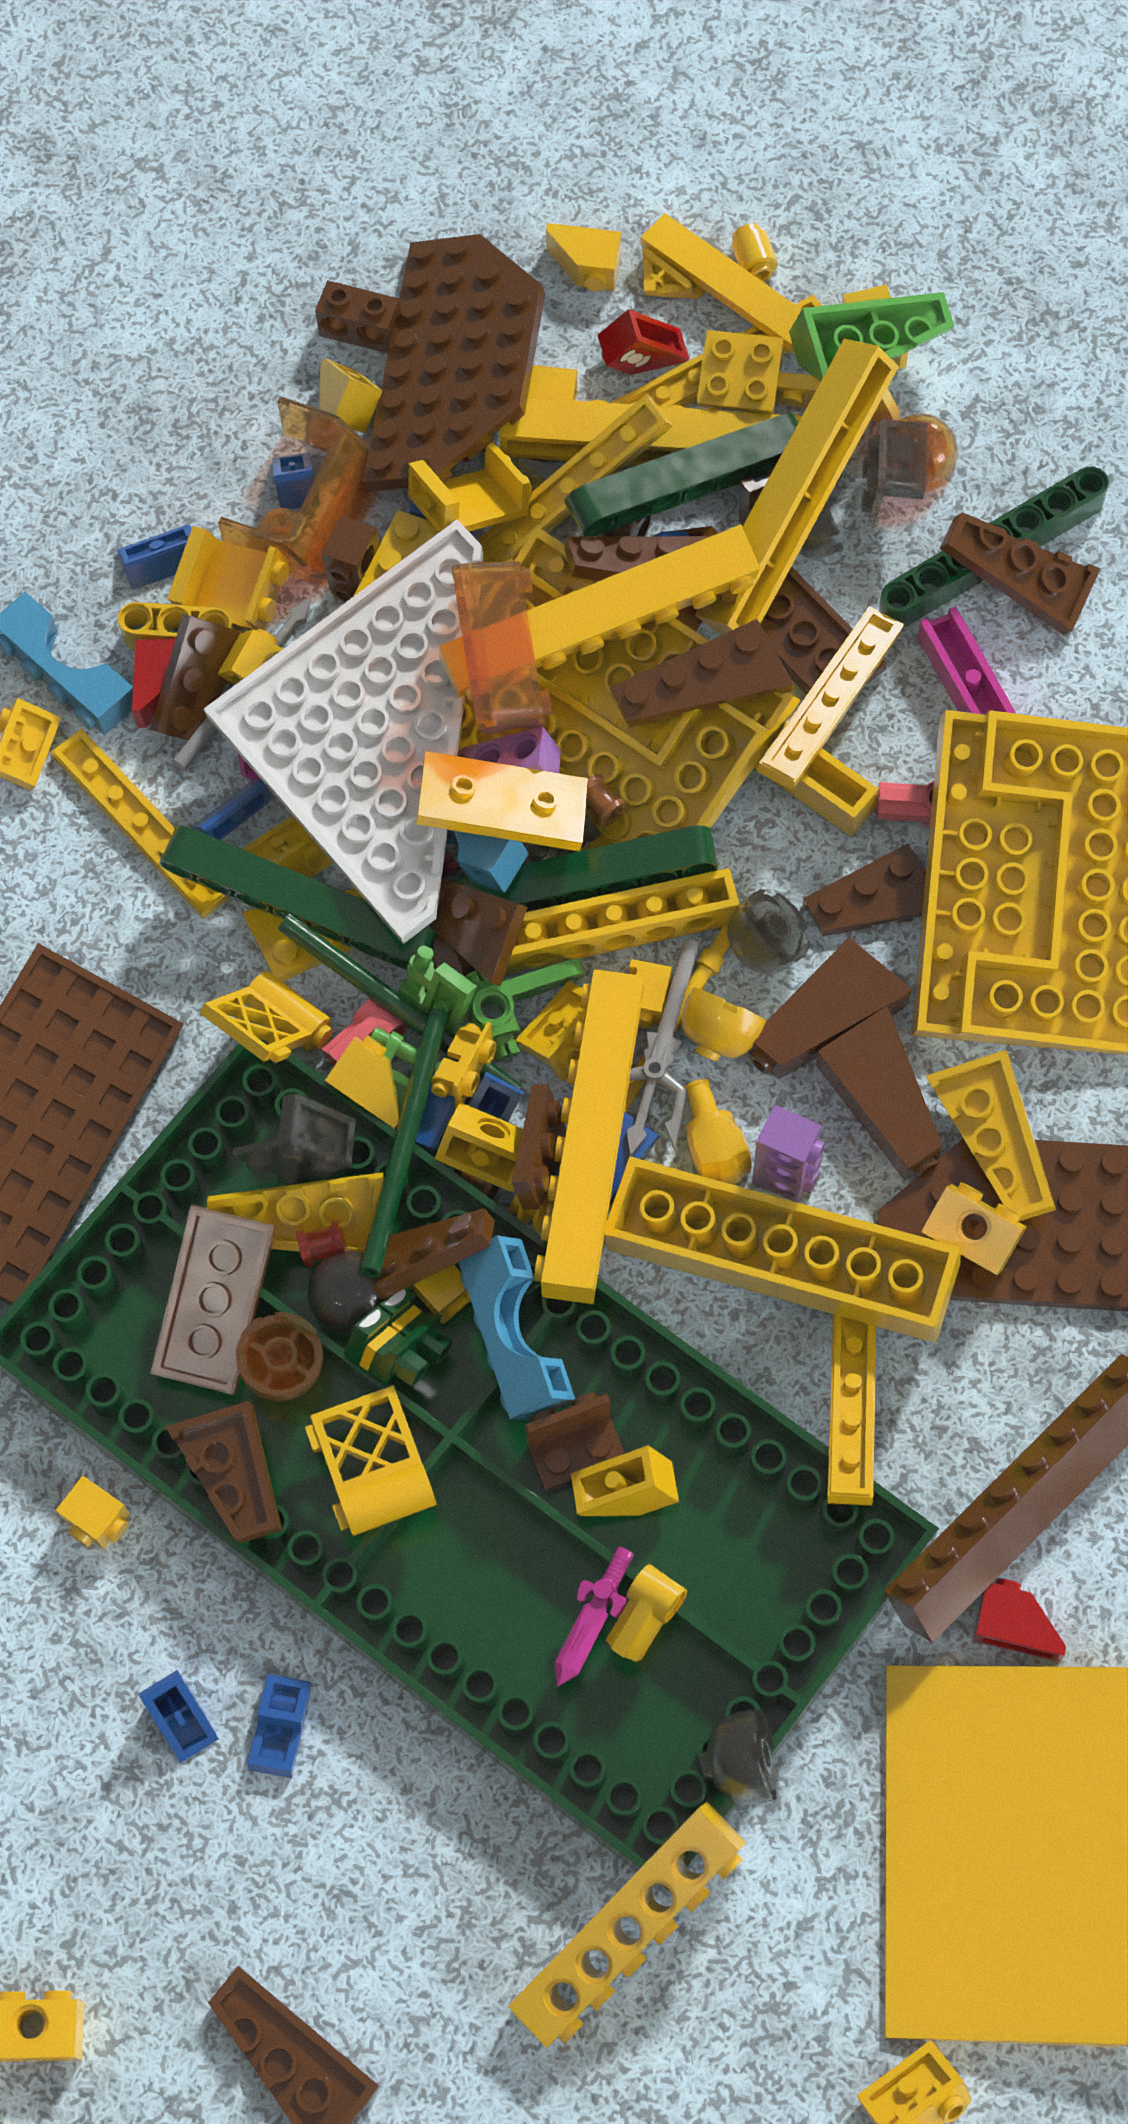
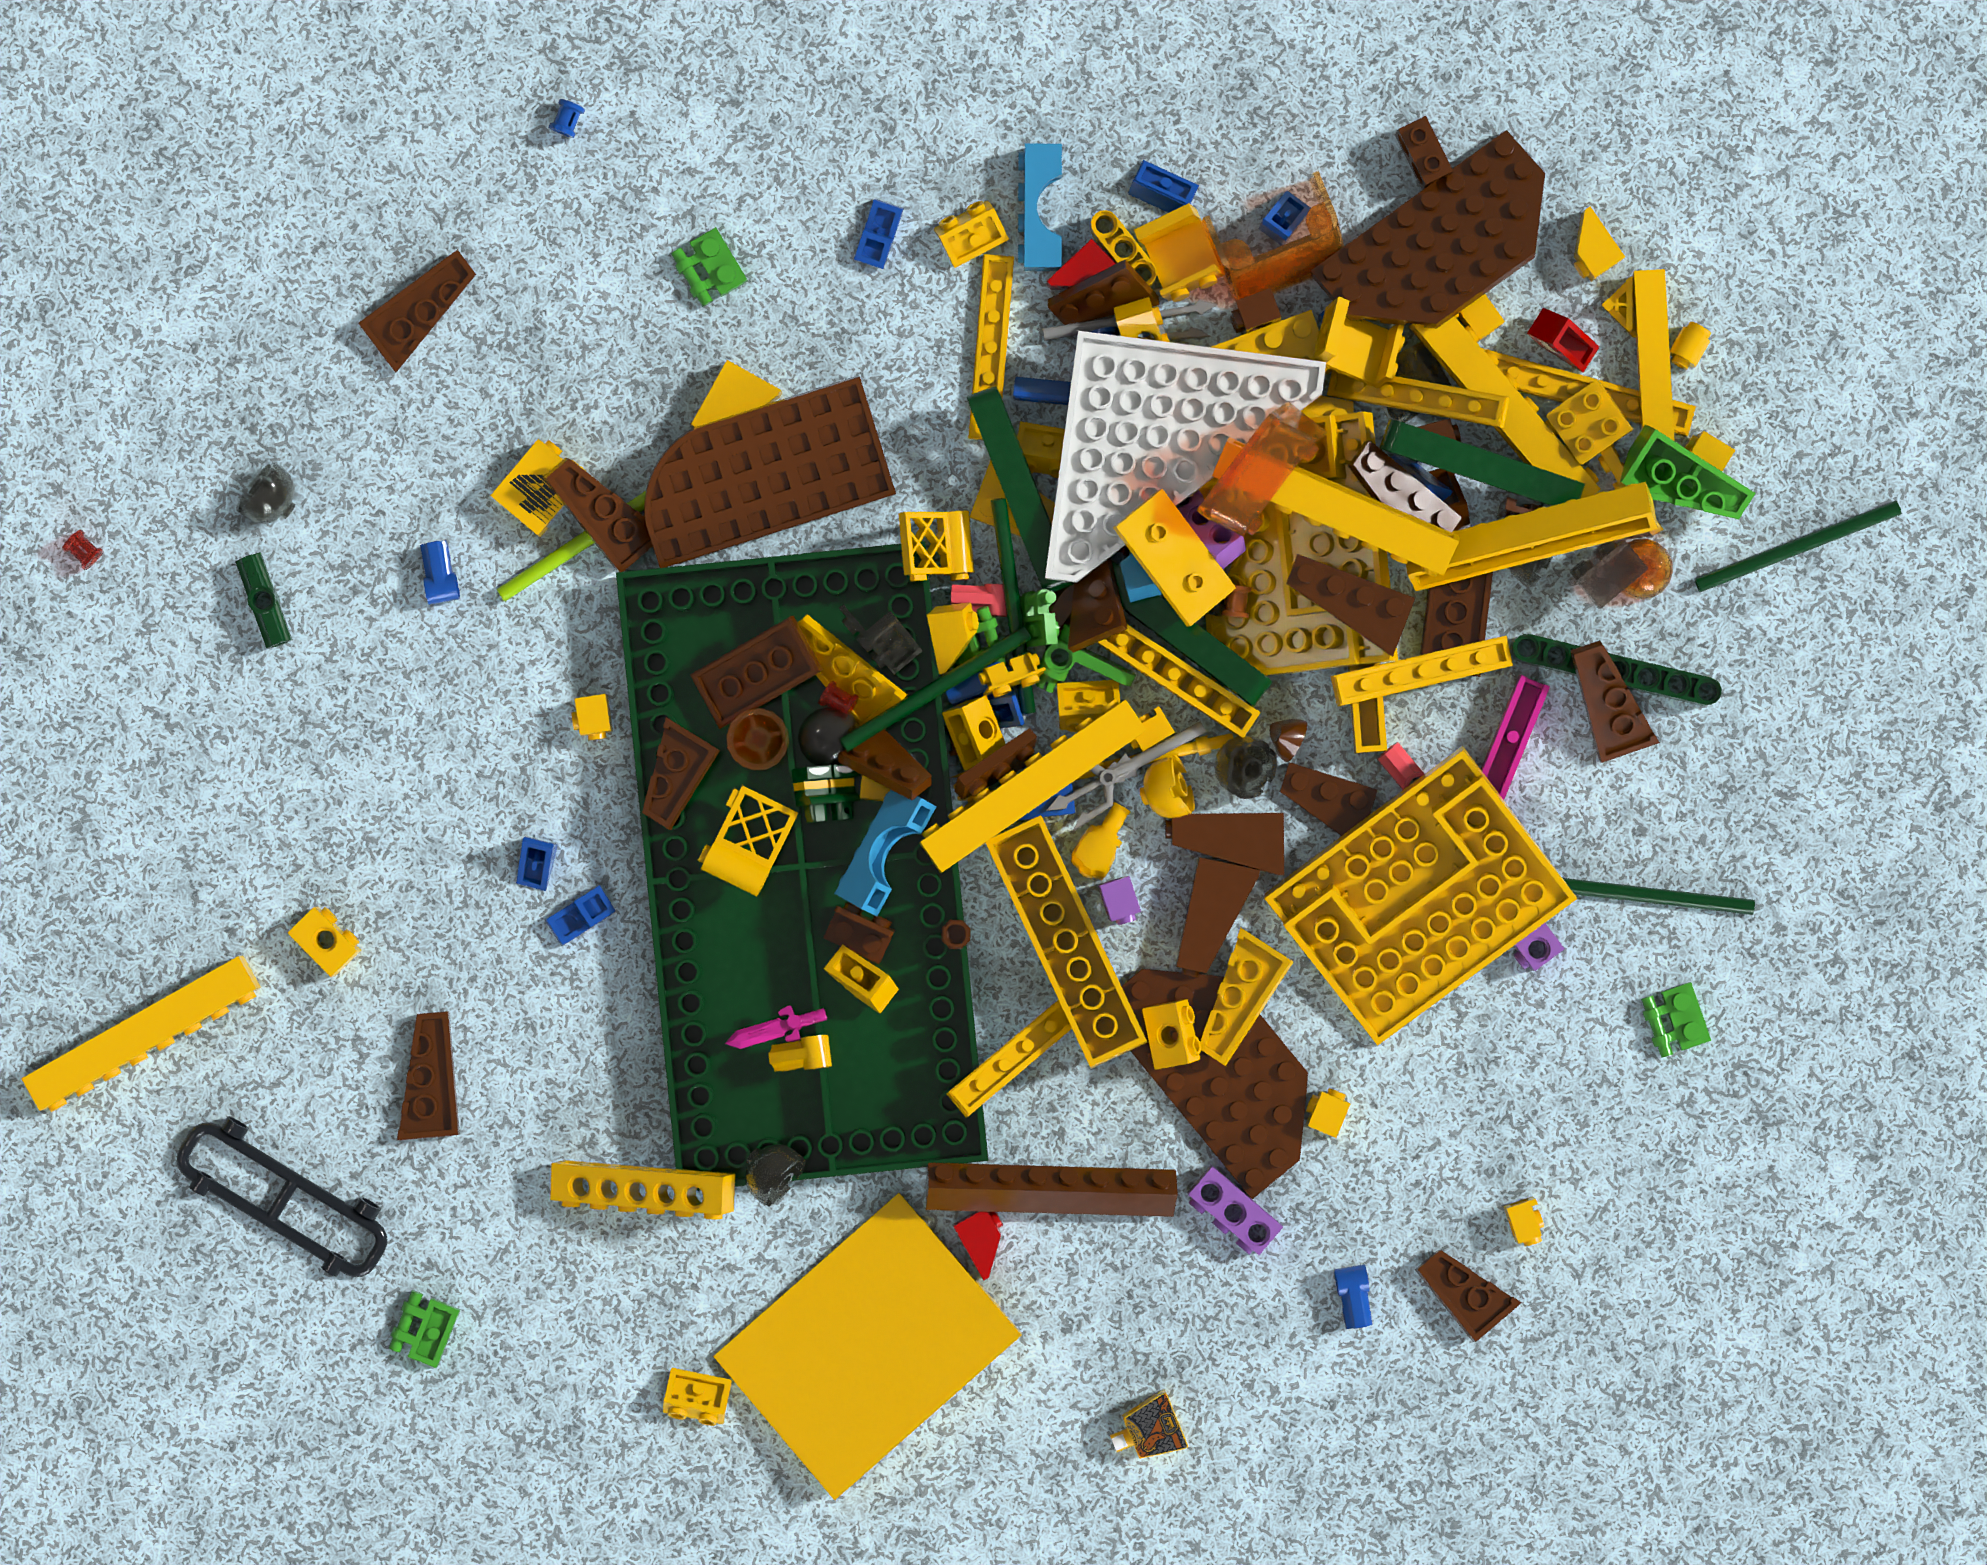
camera: 40 degrees right, 20 degrees up
(347, 394) = (1364, 198): yellow slope -> none
(669, 1341) = (956, 934): none -> reddish brown tile
(779, 873) = (1288, 737): none -> reddish brown piece
(1024, 318) = (1798, 546): none -> dark green piece

